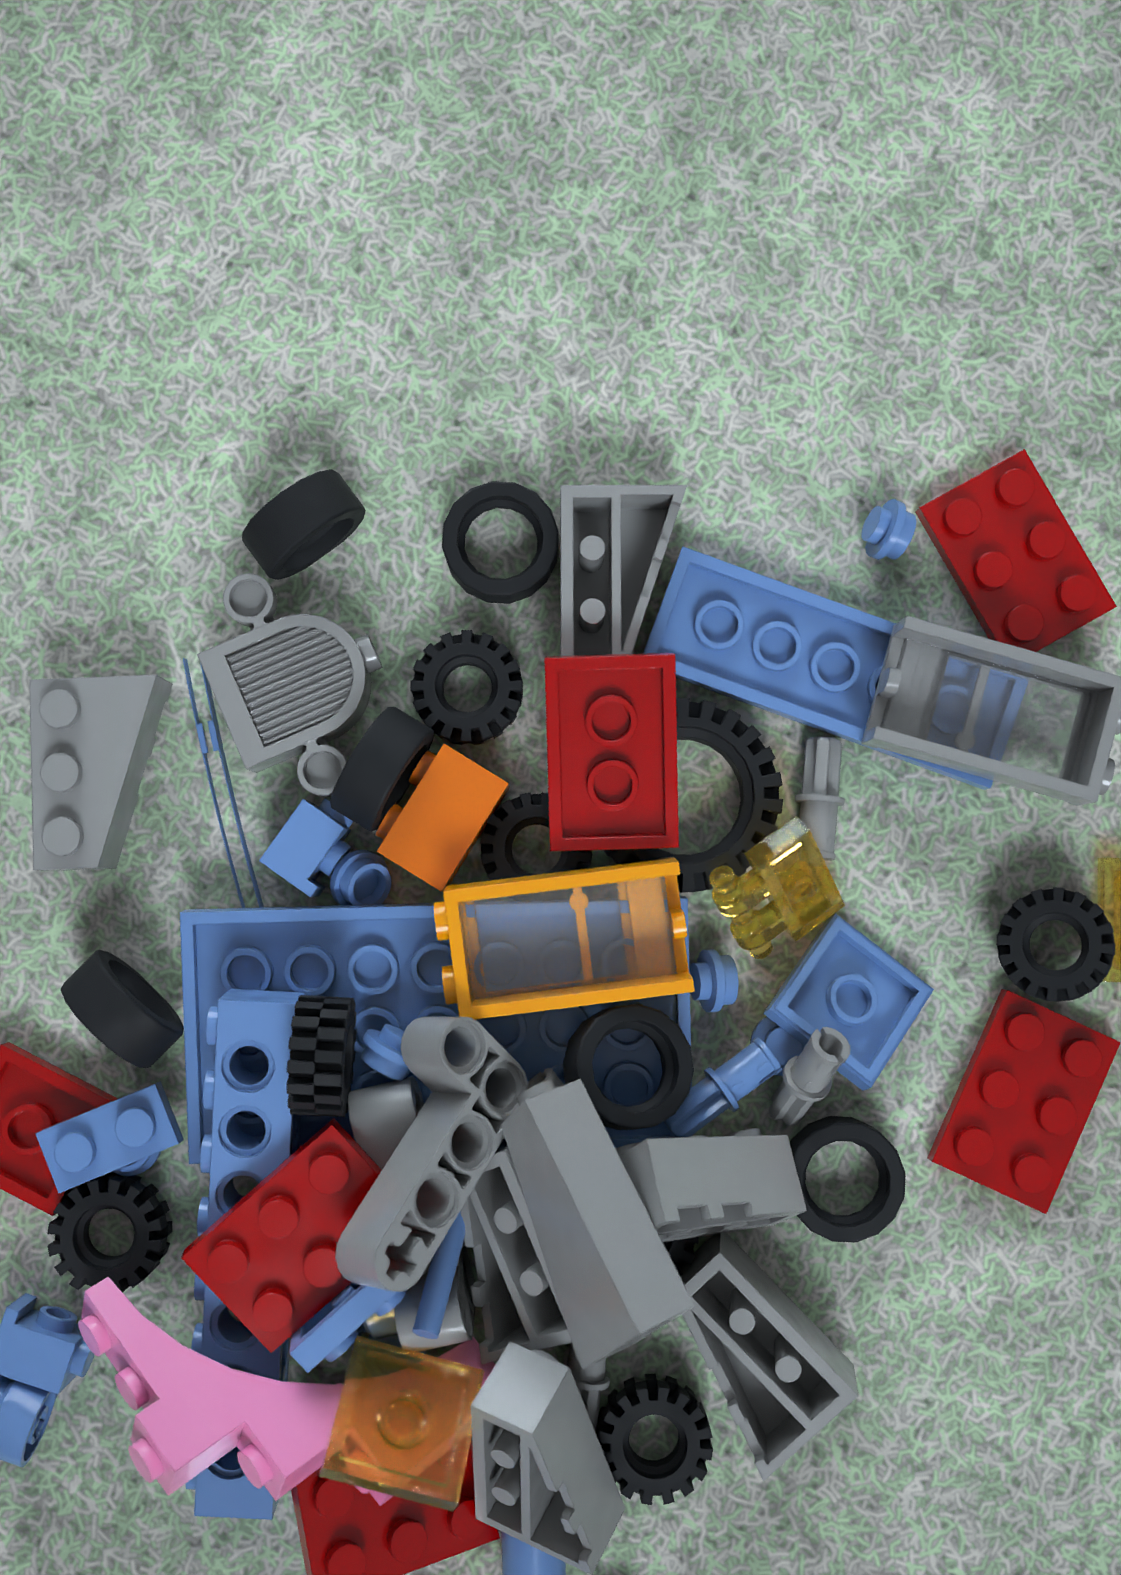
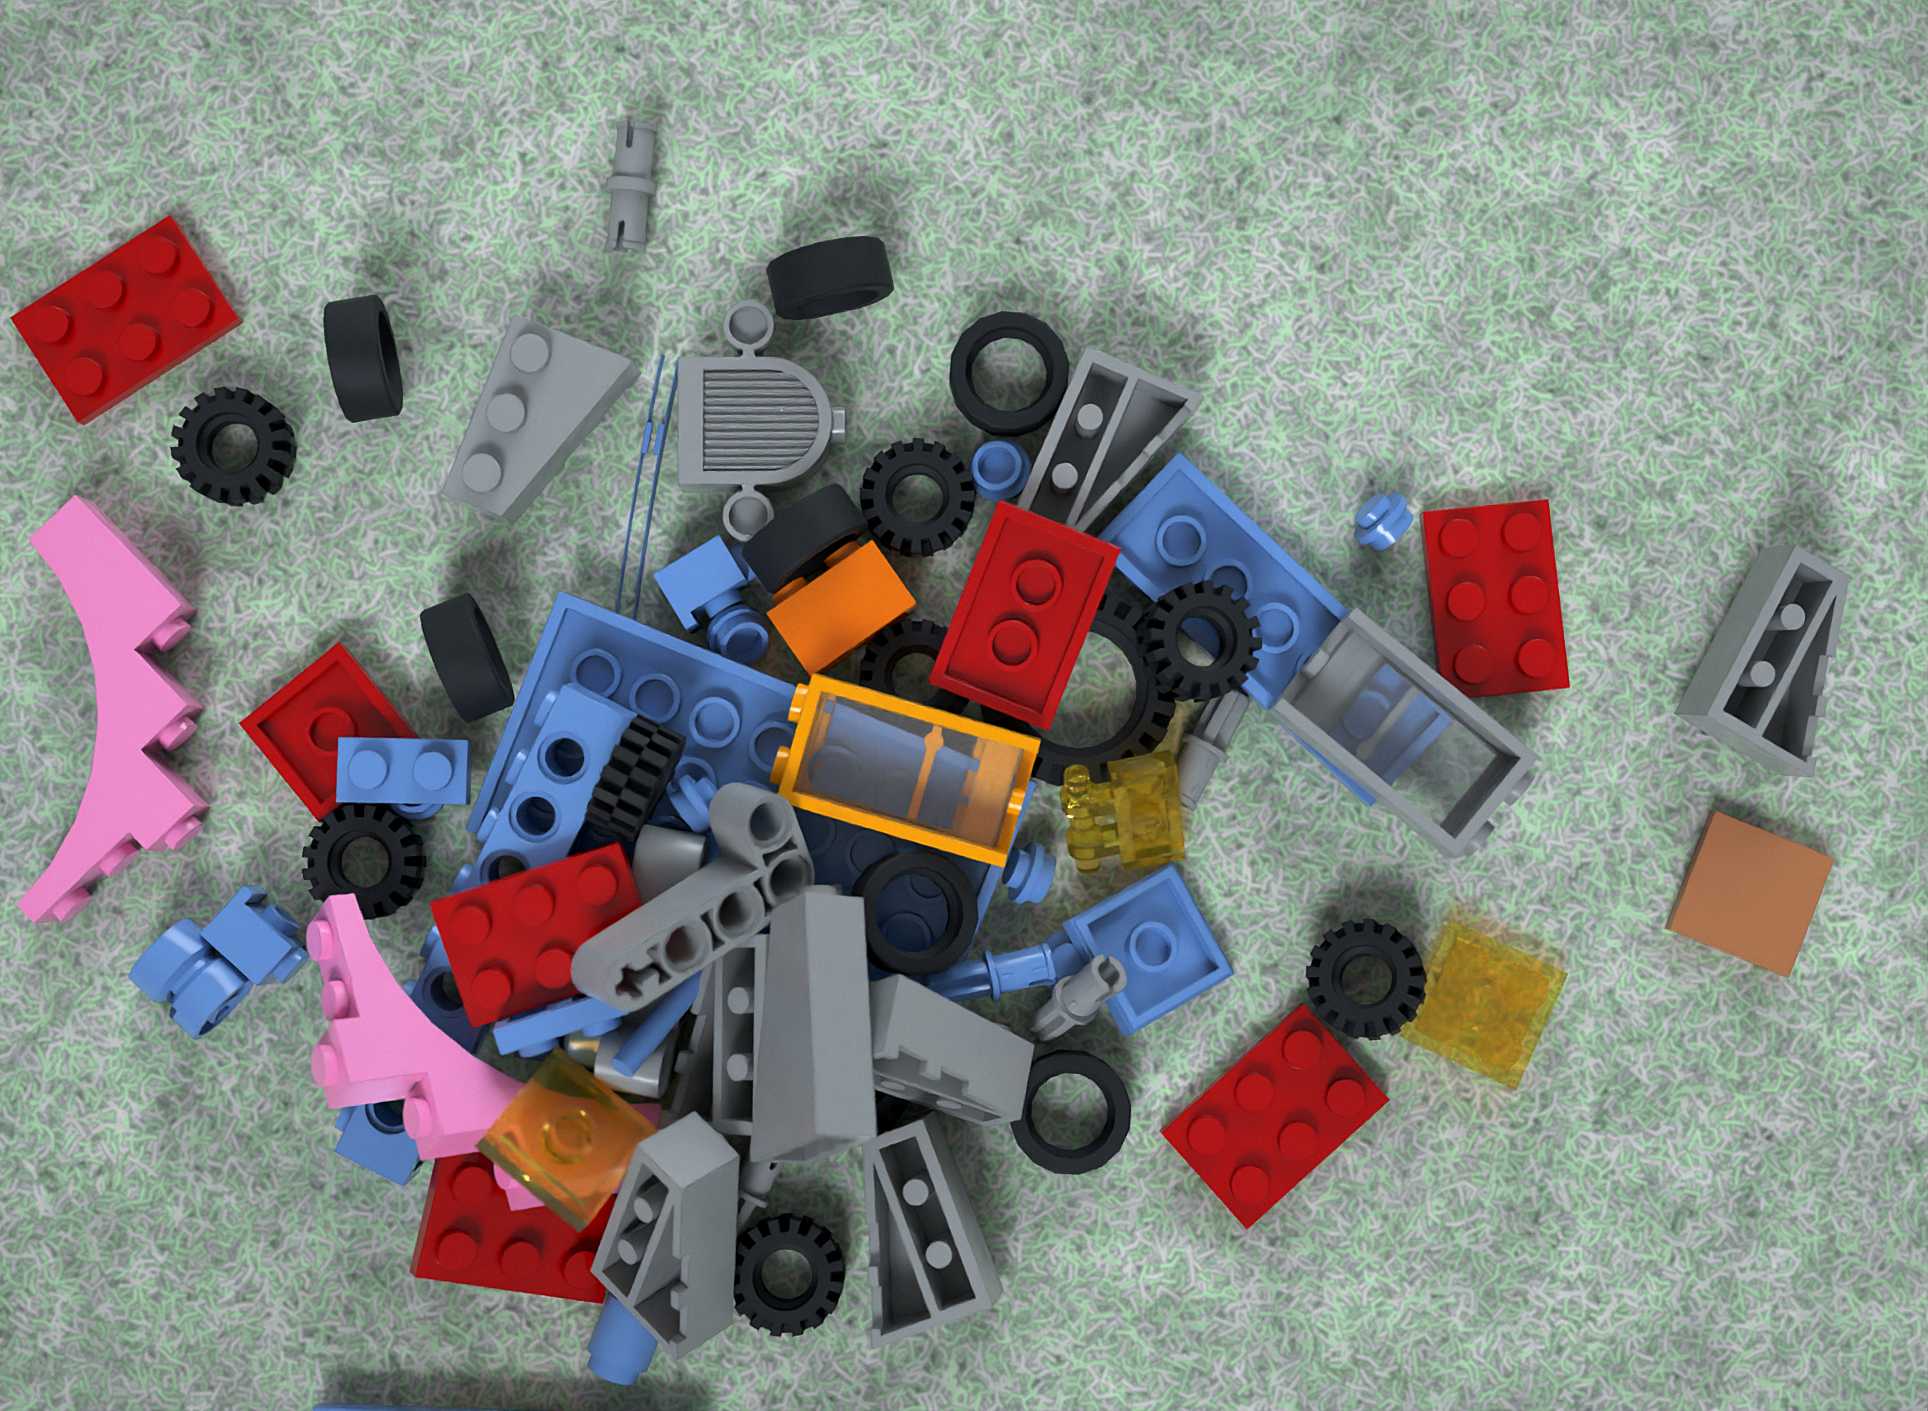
camera: 25 degrees right, 0 degrees up
(90, 520) = (631, 187): none -> light grey pin
(530, 631) = (1000, 469): none -> medium blue plate
(801, 683) = (1234, 633): none -> black tyre

